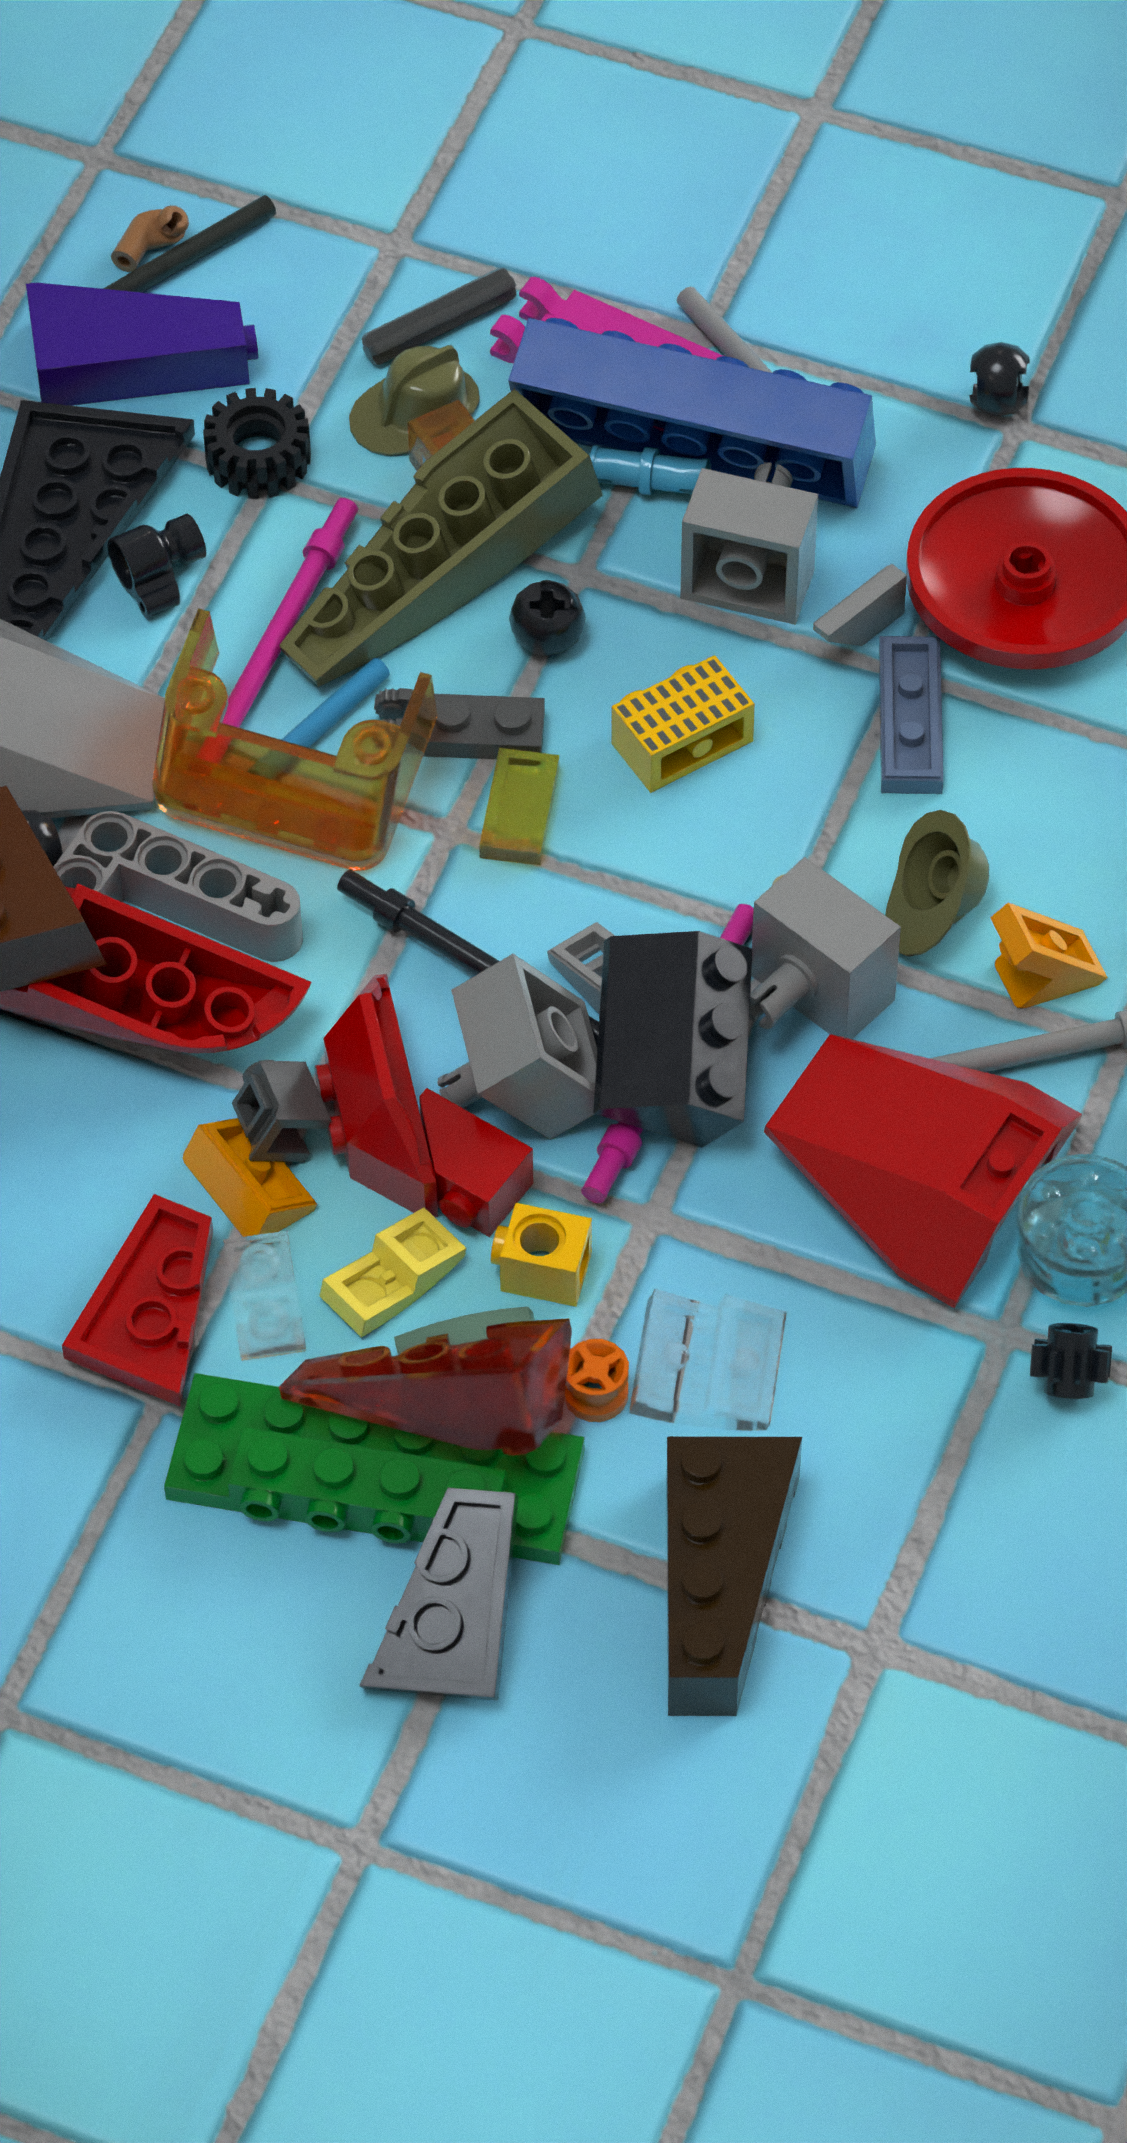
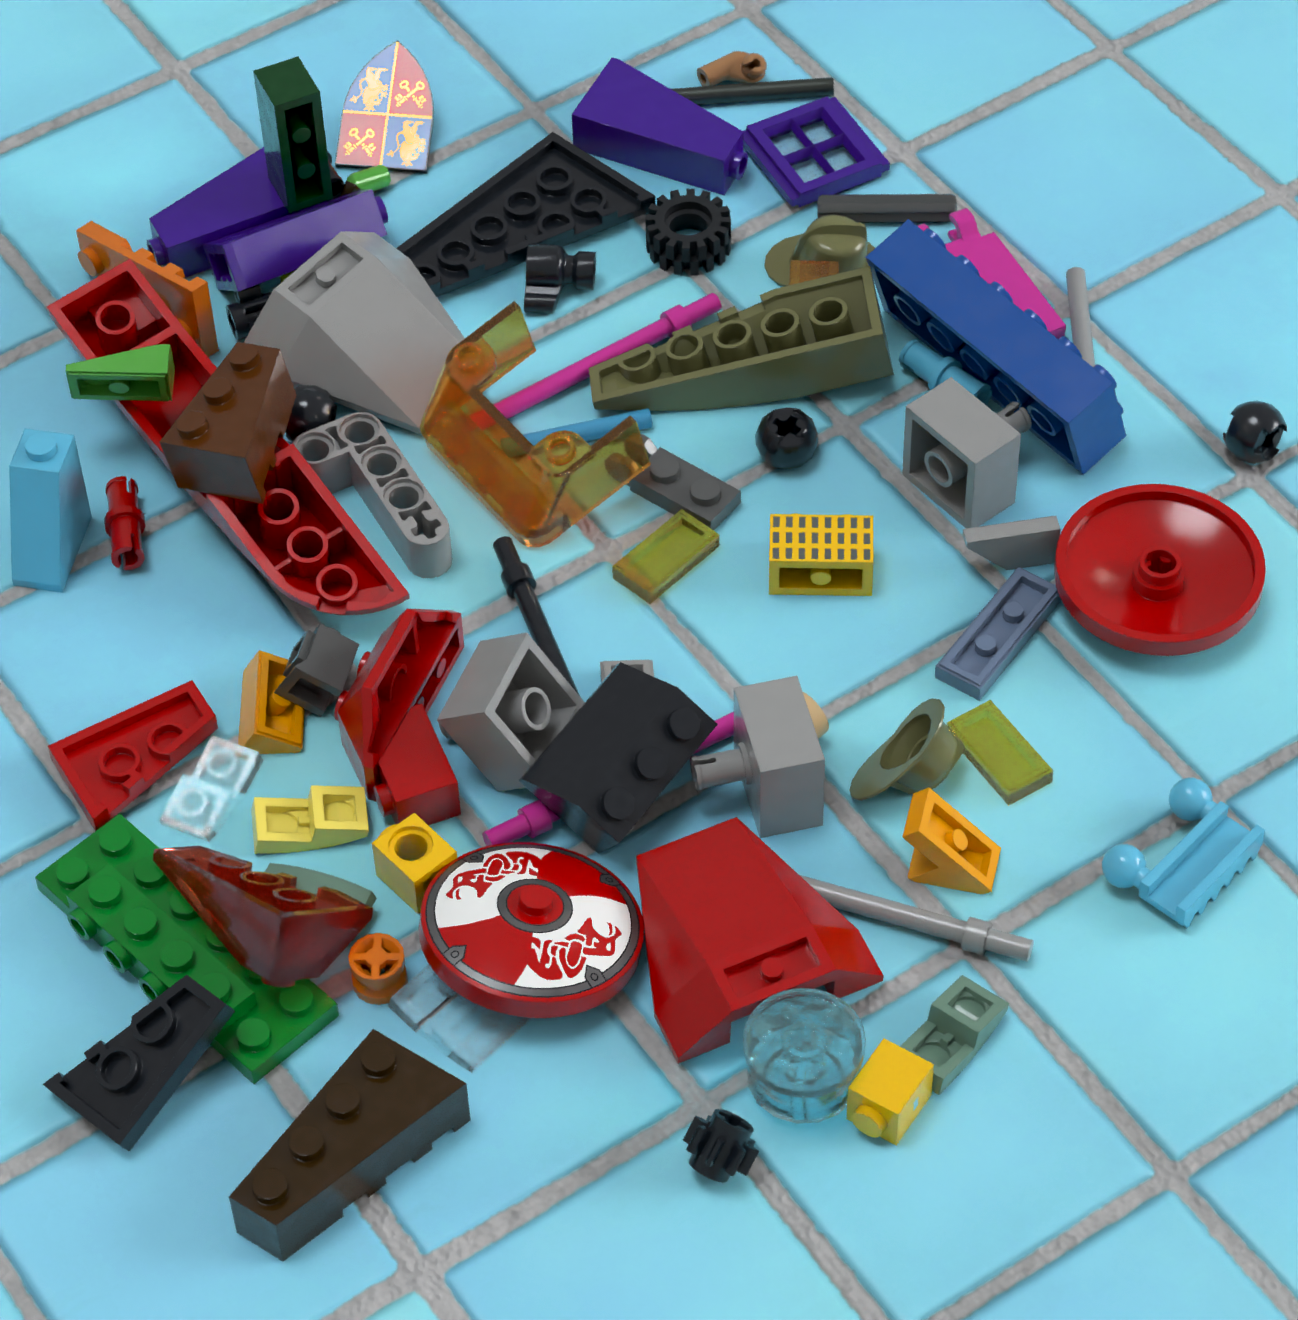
camera: 35 degrees right, 5 degrees down
(312, 288) = (814, 151): none -> dark purple piece
(719, 1256) = (531, 930): none -> dish
(1015, 835) = (1000, 752): none -> clear yellow tile

